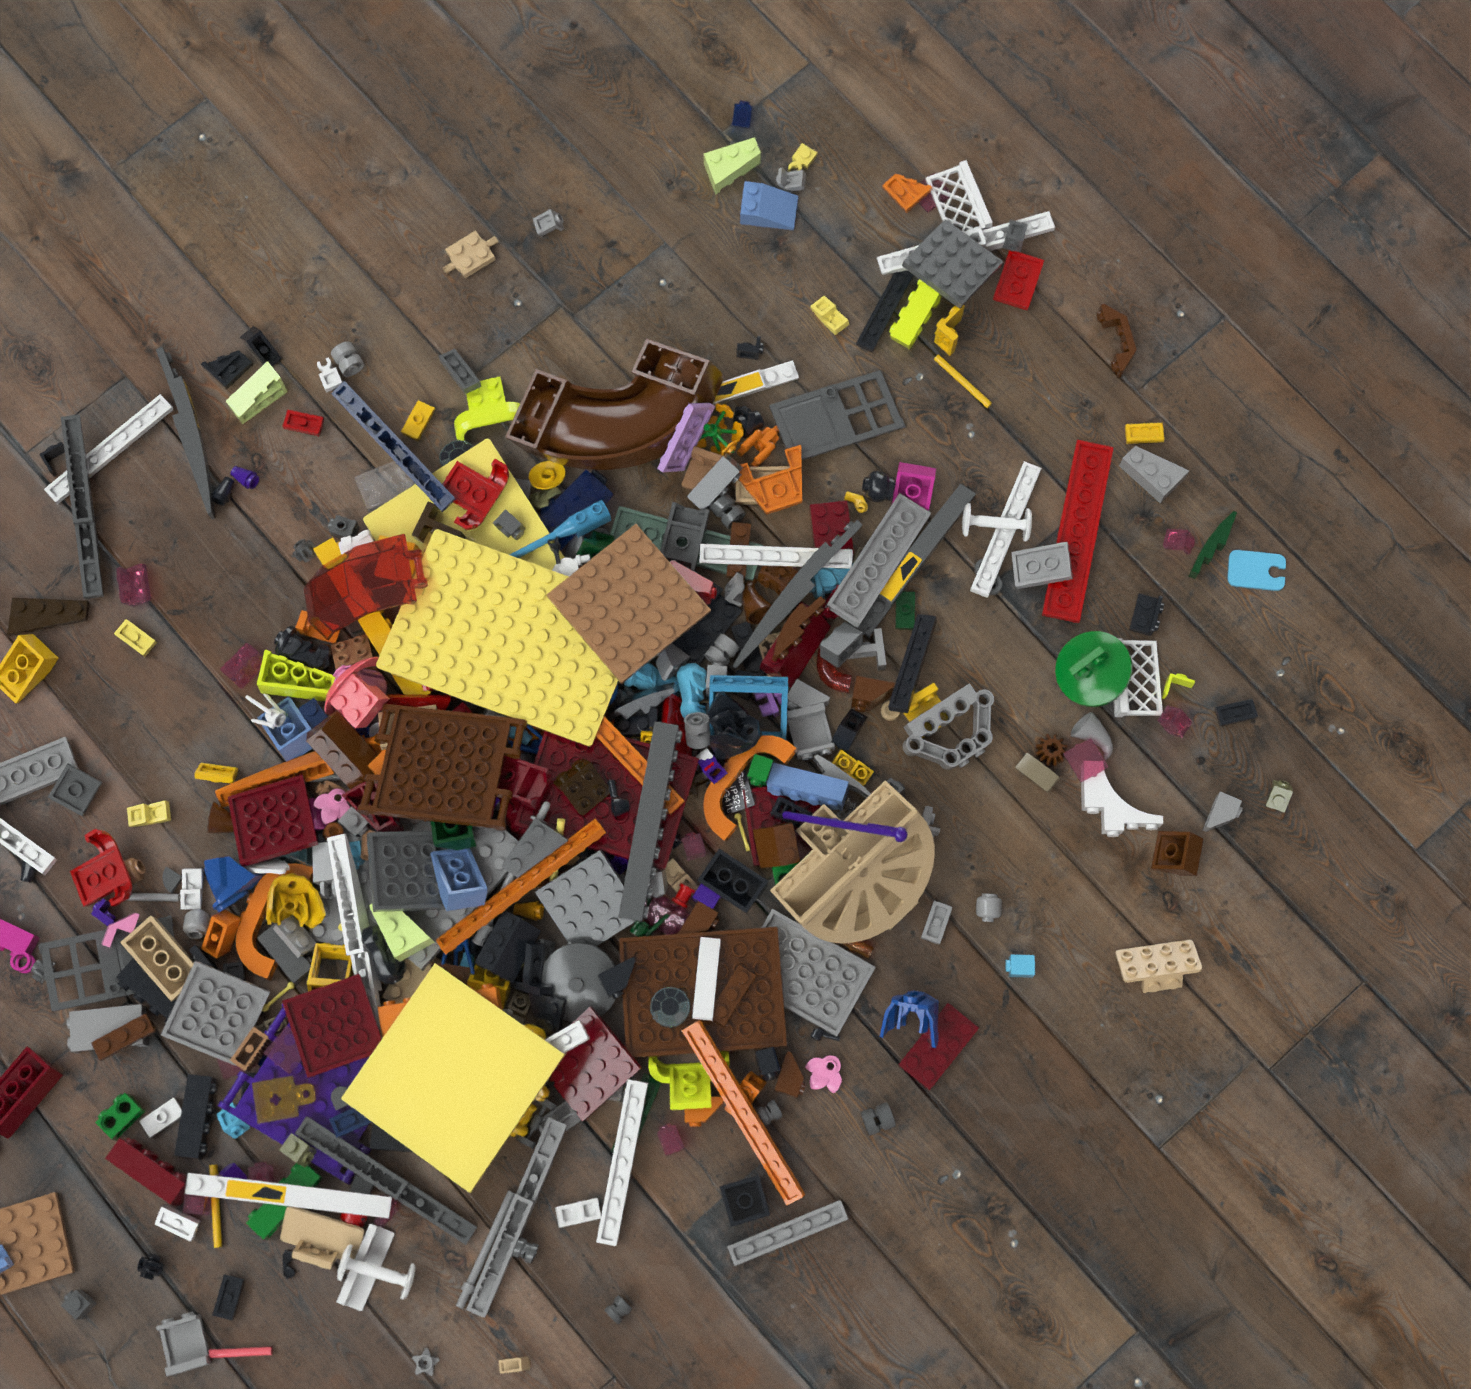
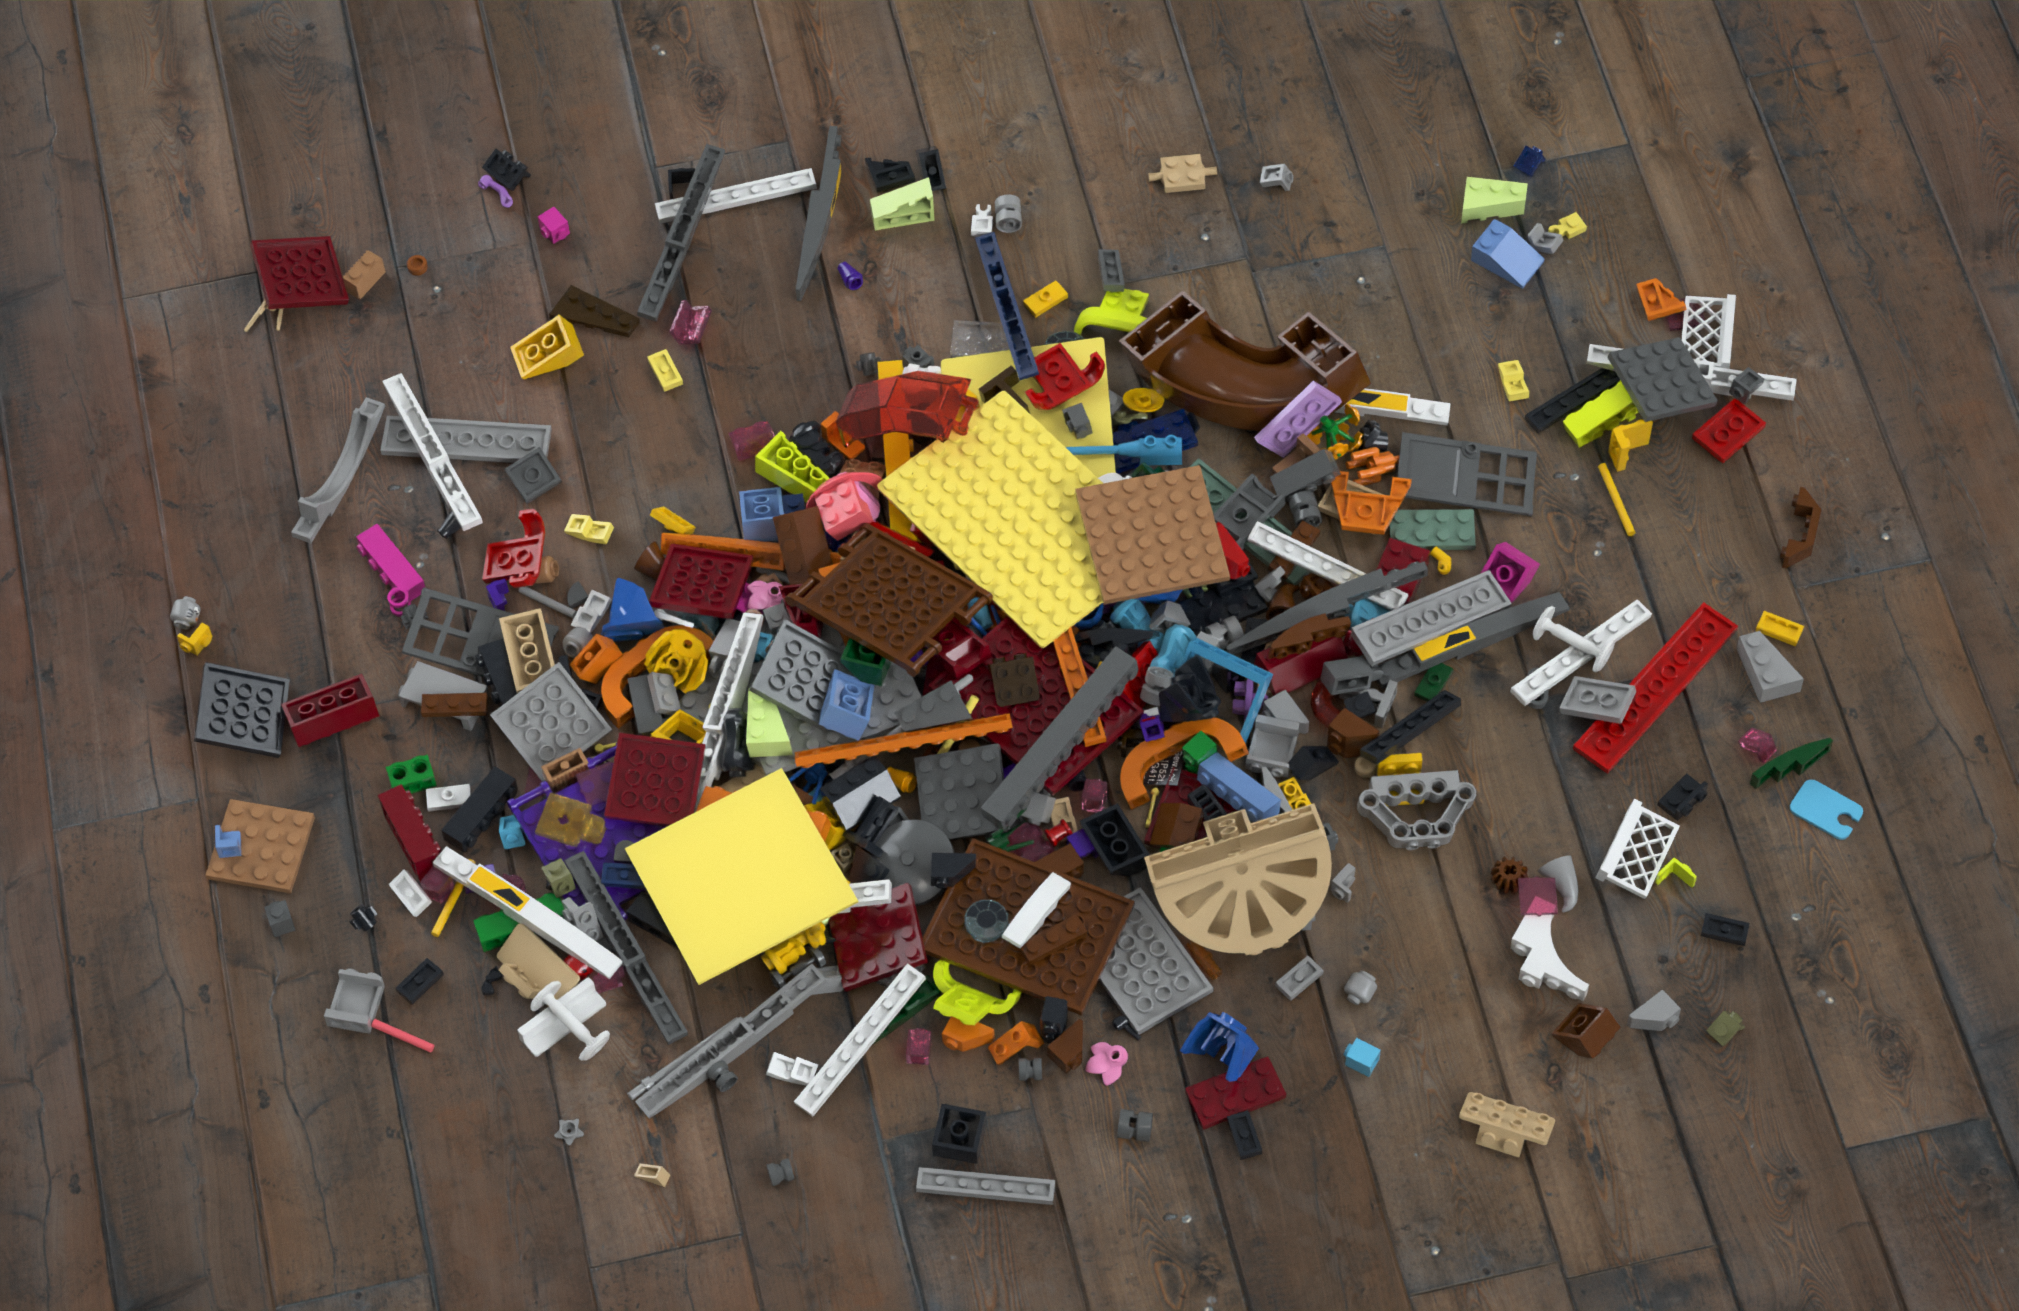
camera: 30 degrees right, 15 degrees down
(126, 924) = (510, 607): bright pink slope -> none
(222, 493) = (820, 280): black cone -> none
(275, 717) = (755, 493): white plant -> none
(303, 423) = (933, 252): red plate -> none
(340, 1179) = (582, 918): none -> light grey bracket
(555, 547) = (1111, 459): black hand -> none
(618, 804) = (1041, 712): black bar -> none
(743, 1112) = (1004, 1051): orange plate -> none
(749, 351) = (1411, 377): black bracket -> none
(835, 476) = (1435, 528): none -> sand green plate
(861, 664) = (1360, 705): none -> black bracket
(878, 486) = (1470, 554): black piece -> none
(899, 833) = (1292, 838): dark purple bar -> none
(965, 1081) = (1244, 1135): none -> black plate
(1037, 772) = (1483, 889): dark tan slope -> none
(1093, 669) = (1595, 817): green bracket -> none
(1174, 721) = (1653, 905): clear pink brick -> none

